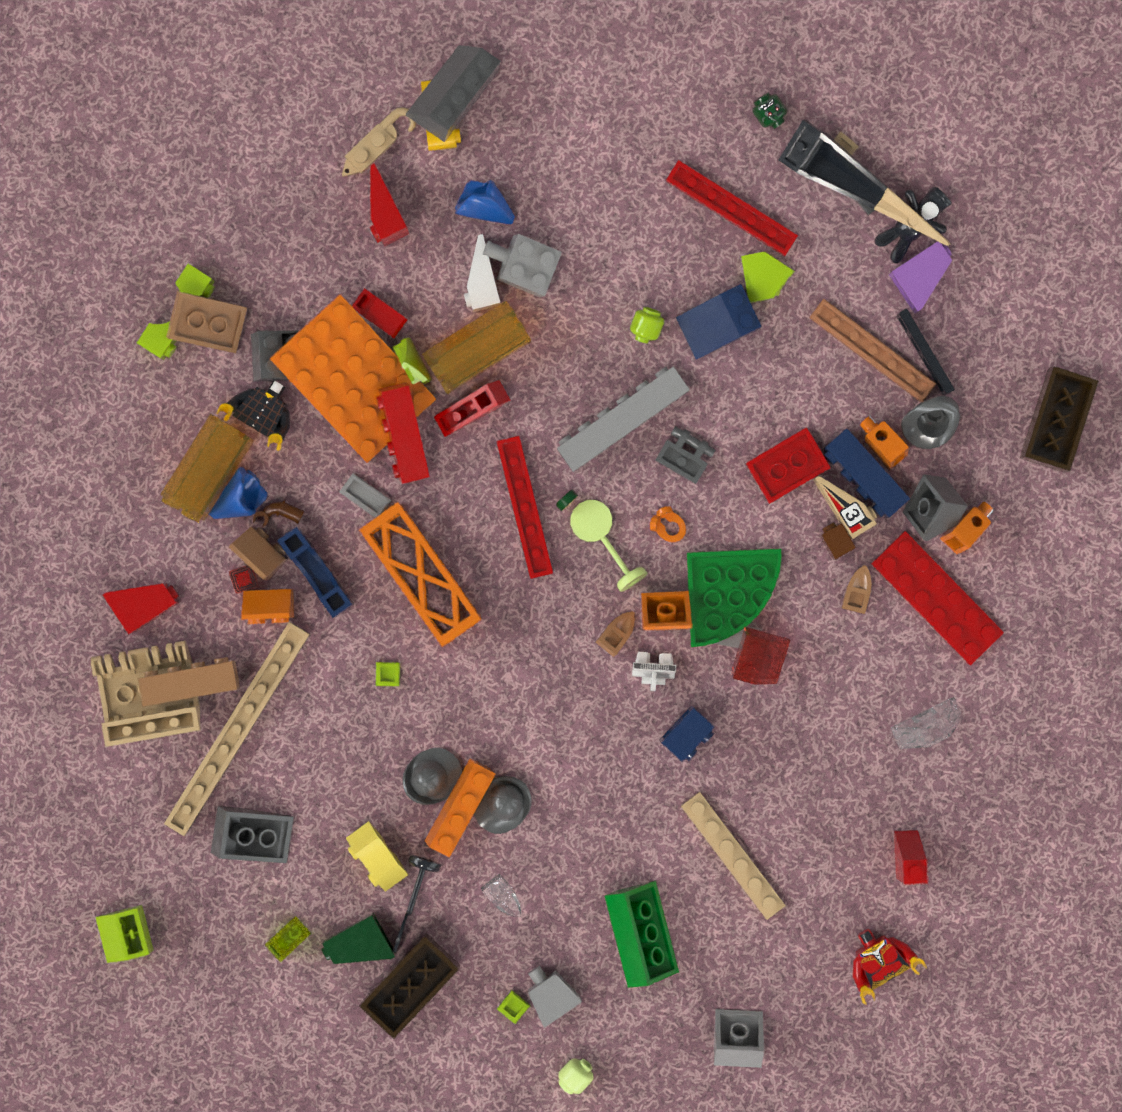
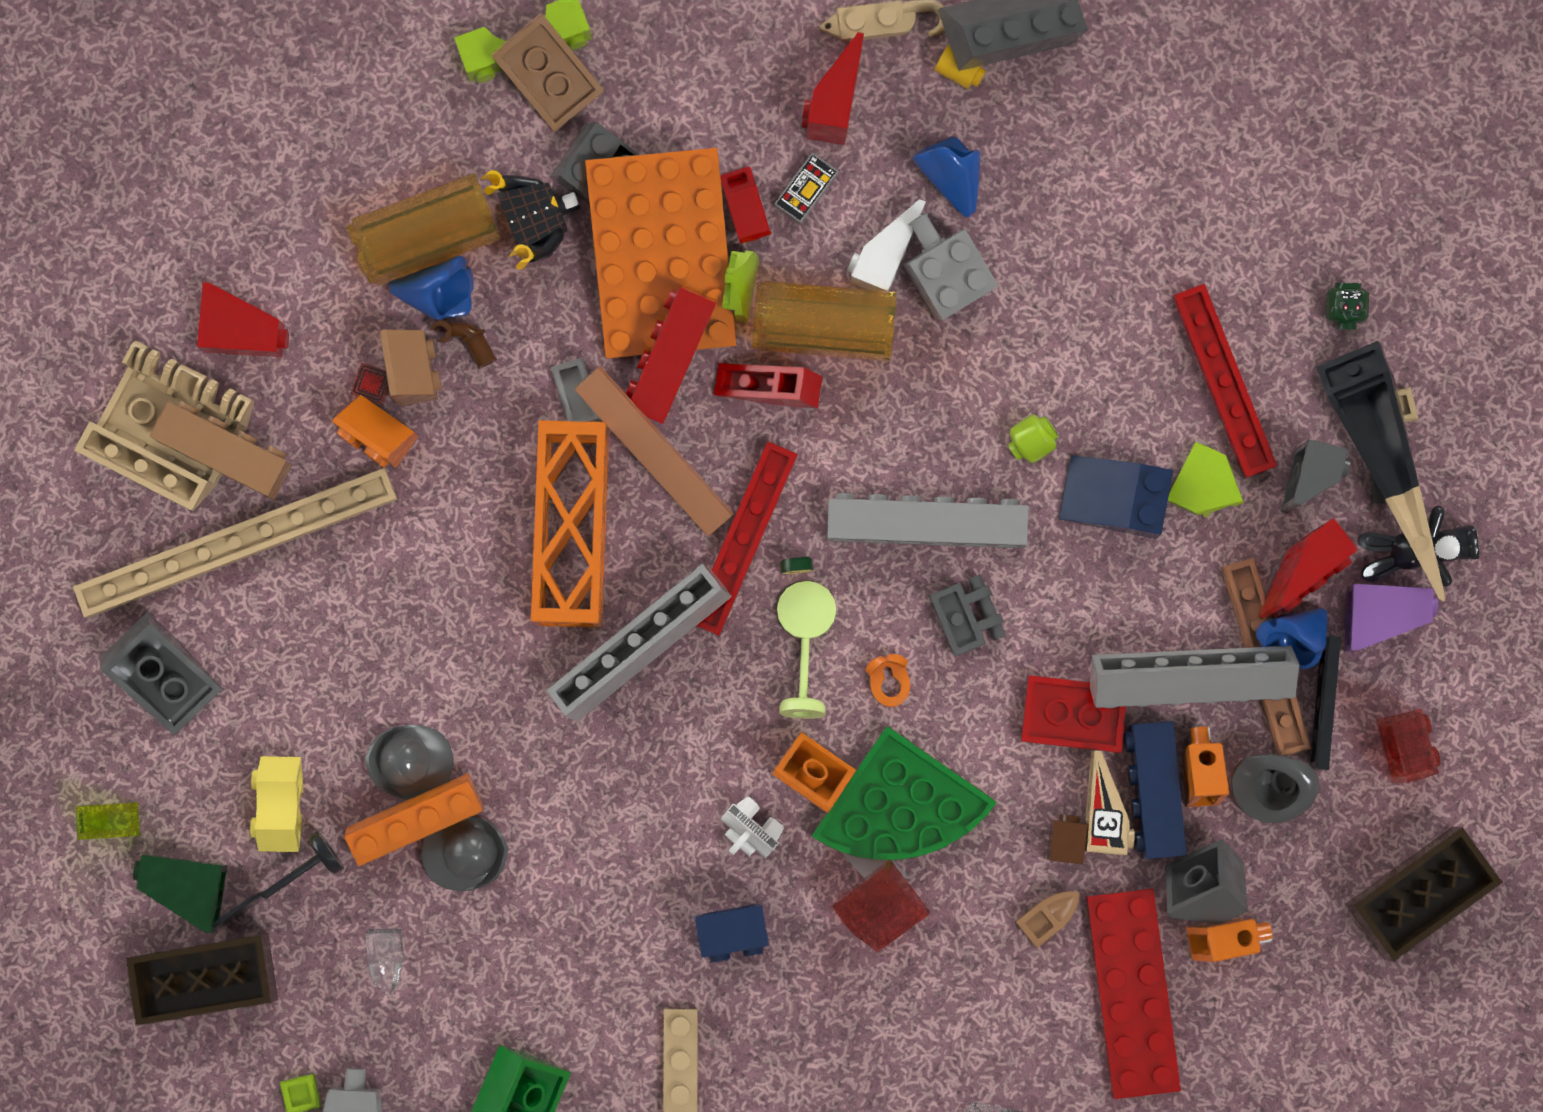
camera: 40 degrees right, 5 degrees down
(316, 572) = (457, 440): dark blue arch -> none
(387, 674) = (449, 609): lime tile -> none
(407, 276) = (806, 188): none -> tile
(436, 496) = (653, 451): none -> nougat tile
(512, 612) = (639, 643): none -> light grey brick
(617, 633) = (739, 757): medium nougat plate -> none
(822, 224) = (1314, 470): none -> dark grey slope
(840, 394) = (1194, 676): none -> light grey brick
(856, 282) = (1308, 567): none -> red slope
(880, 328) = (1301, 630): none -> blue hat
(990, 341) = (1408, 746): none -> clear red slope

